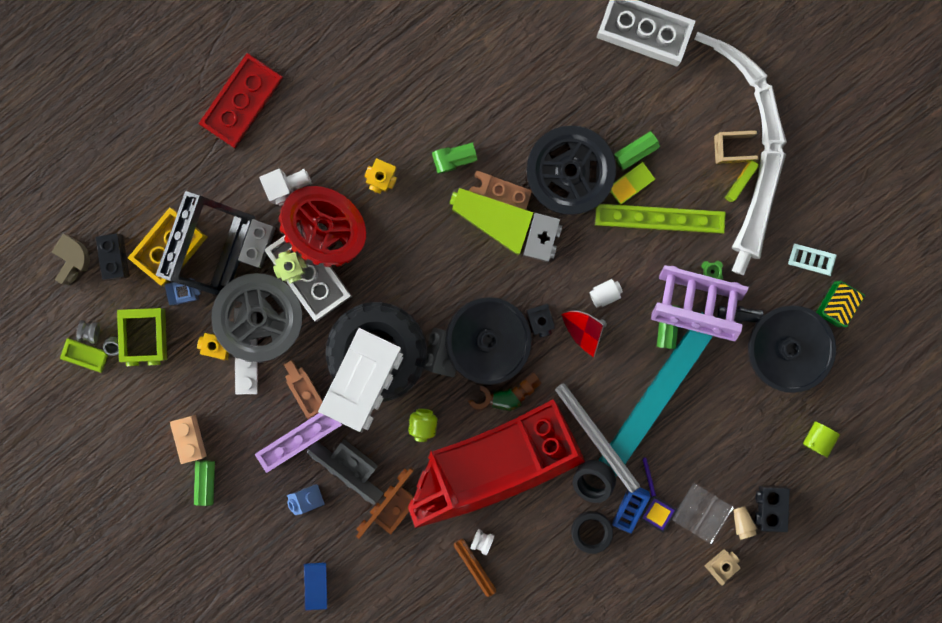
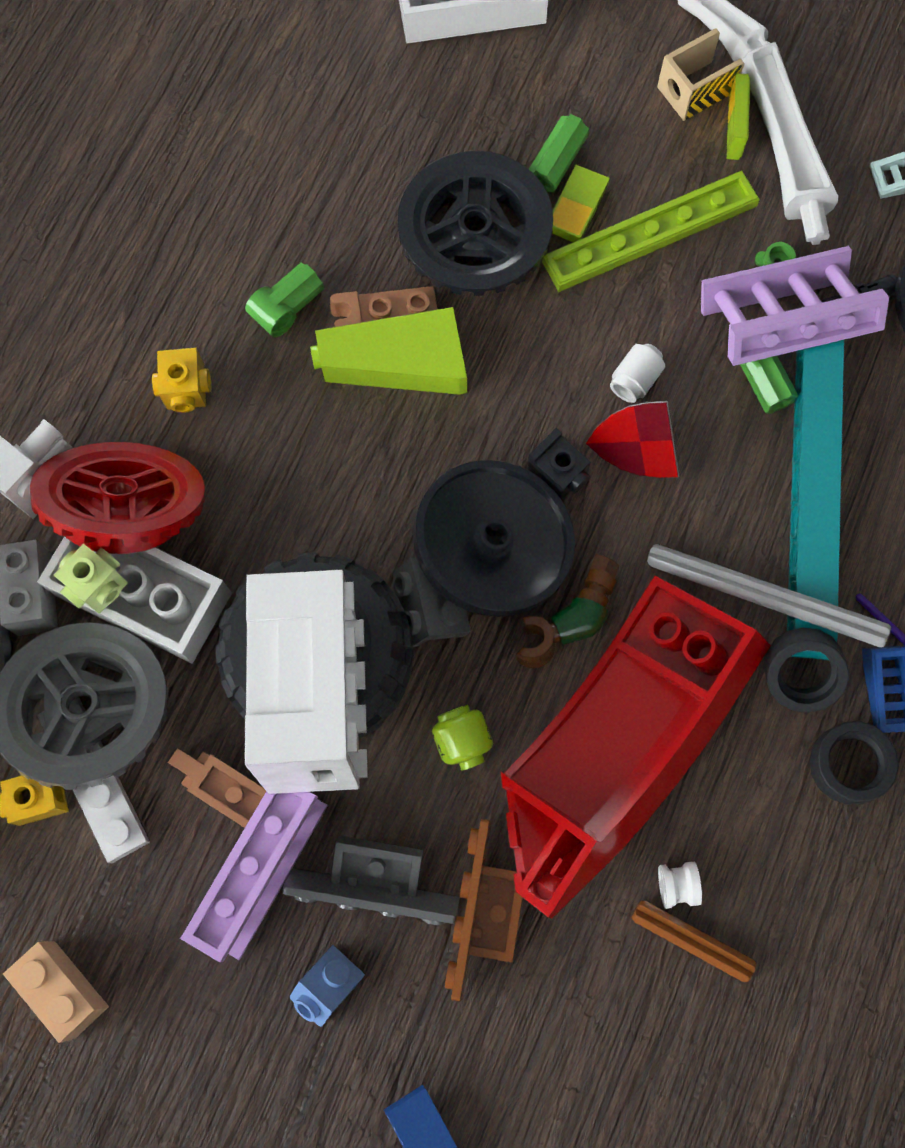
camera: 25 degrees left, 15 degrees down
(204, 483) = (124, 1058): bright green axle -> none
(533, 247) = (485, 322): light grey brick -> none

